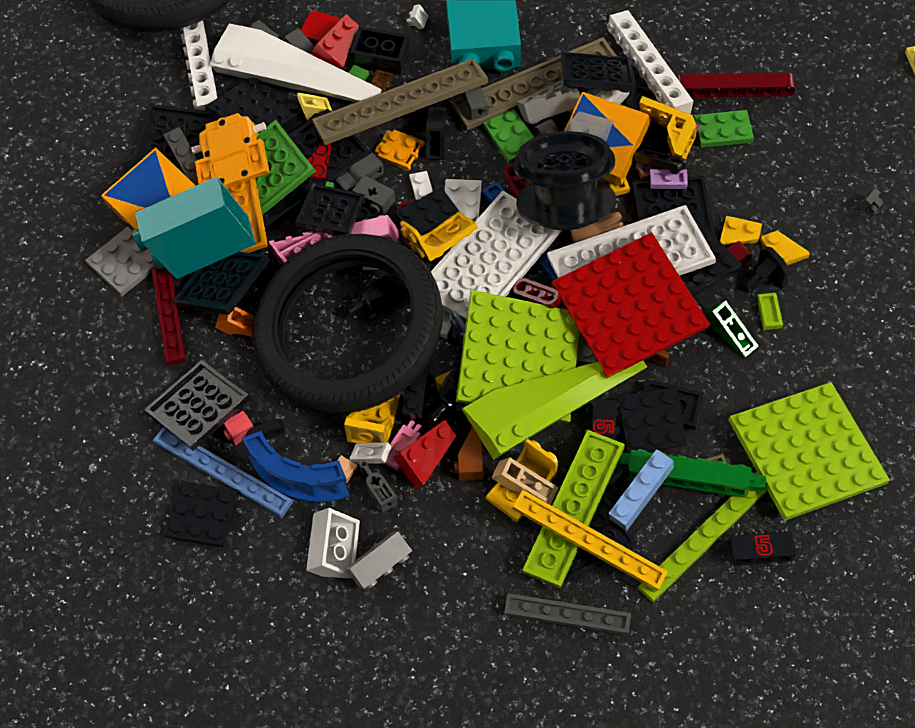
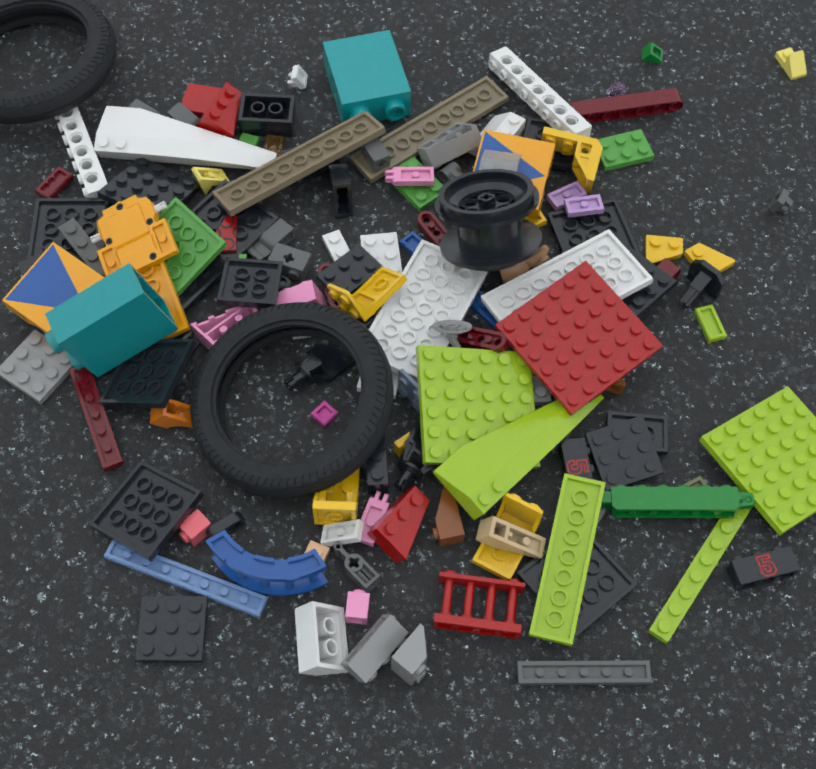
camera: 15 degrees left, 0 degrees up
(168, 92) = (54, 183): none -> dark red plate
(371, 522) = (357, 607): none -> bright pink brick
(377, 343) = (324, 414): none -> dark pink tile
(397, 148) = (304, 211): light orange plate -> none
(409, 572) = (411, 657): none -> light grey slope
(487, 556) = (487, 624): none -> red fence
(505, 128) = (410, 176): none -> bright pink hinge
(511, 280) = (452, 329): none -> light grey dish
(590, 540) = (593, 590): yellow plate -> none
(597, 72) = (492, 109): black plate -> none
(641, 490) = (633, 528): light blue brick -> none
(660, 160) = (573, 188): black plate -> none
(730, 328) = (678, 346): green slope -> none
(732, 66) = (617, 89): none -> clear purple plate
(777, 34) = (652, 53): none -> green slope

